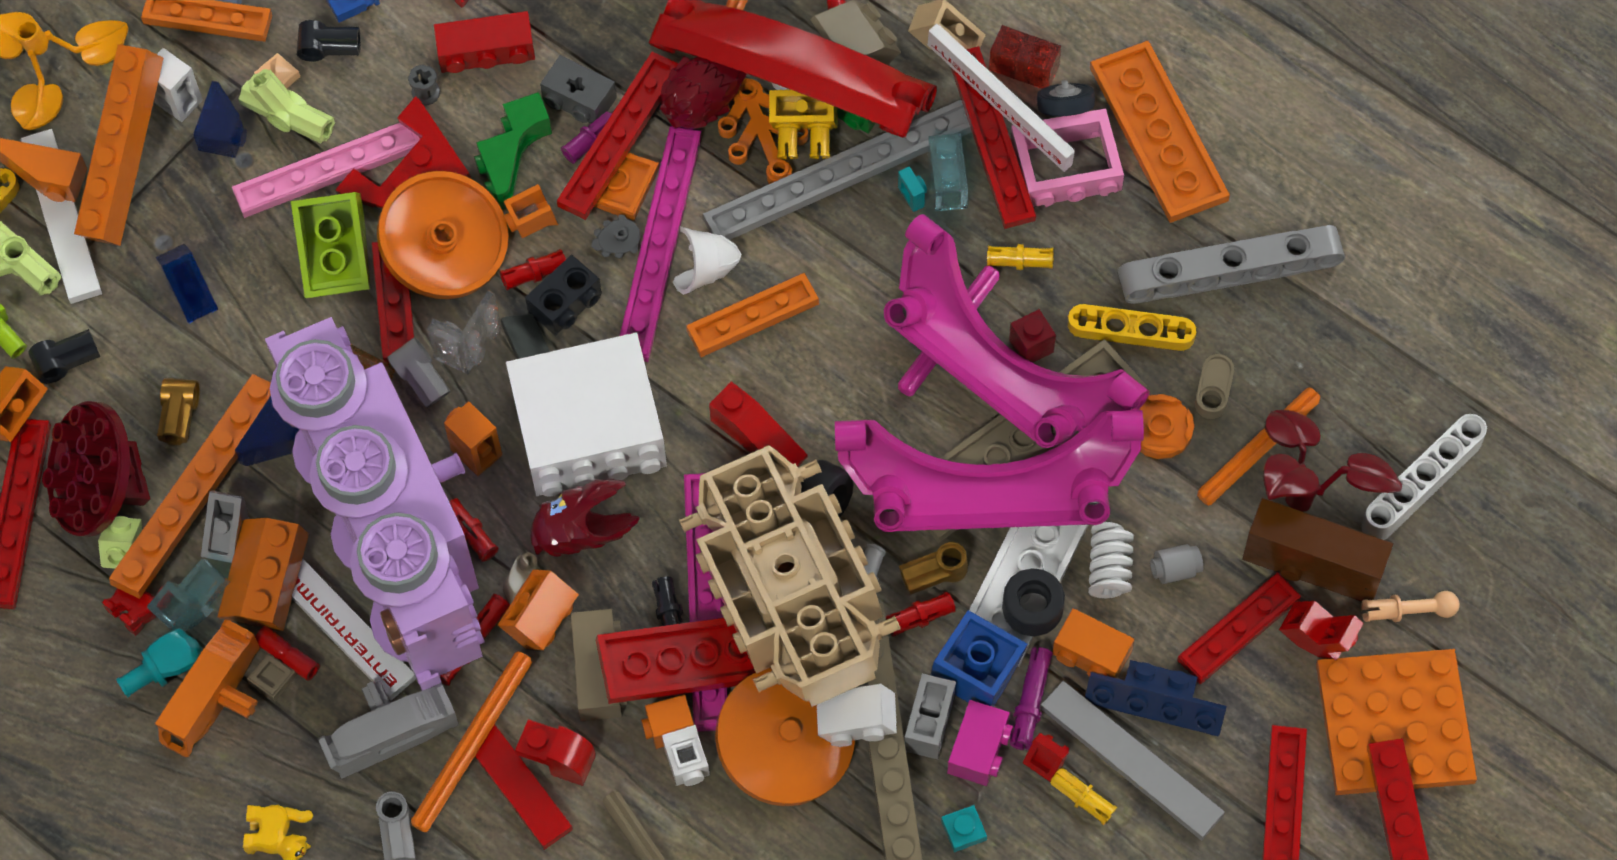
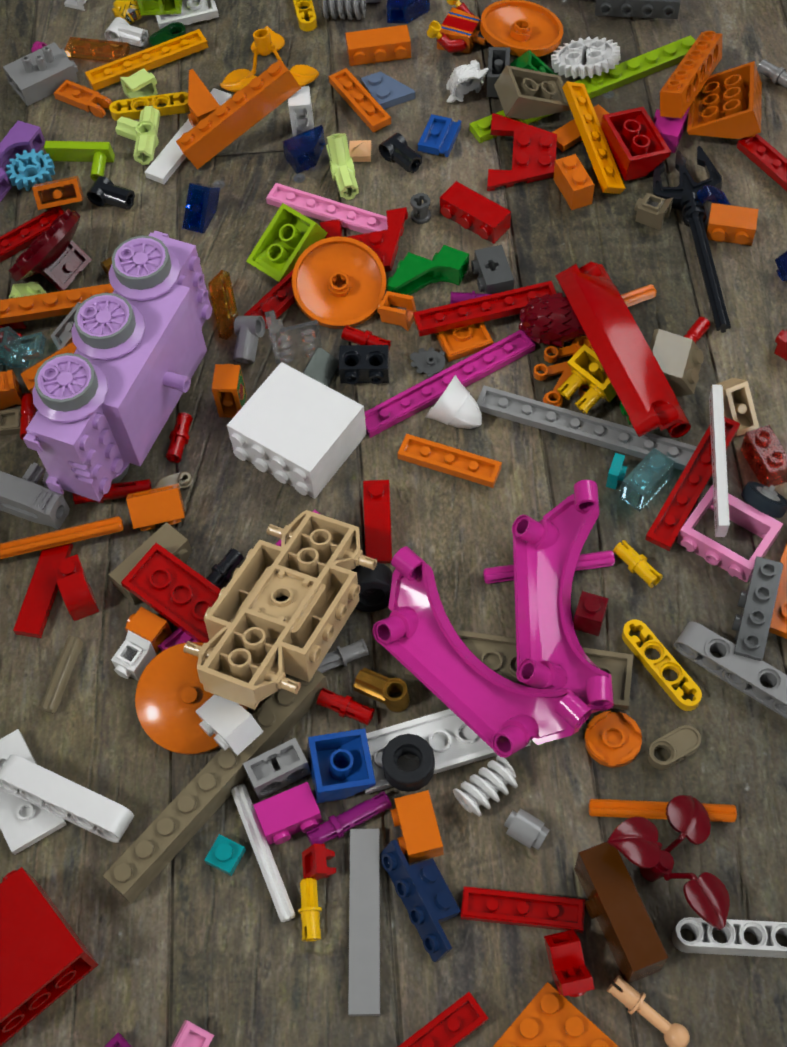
camera: 50 degrees right, 5 degrees down
(571, 526) = (228, 479): dark red head -> none
(992, 794) = (263, 853): none -> white axle
(1161, 206) = (757, 609): none -> dark grey bracket

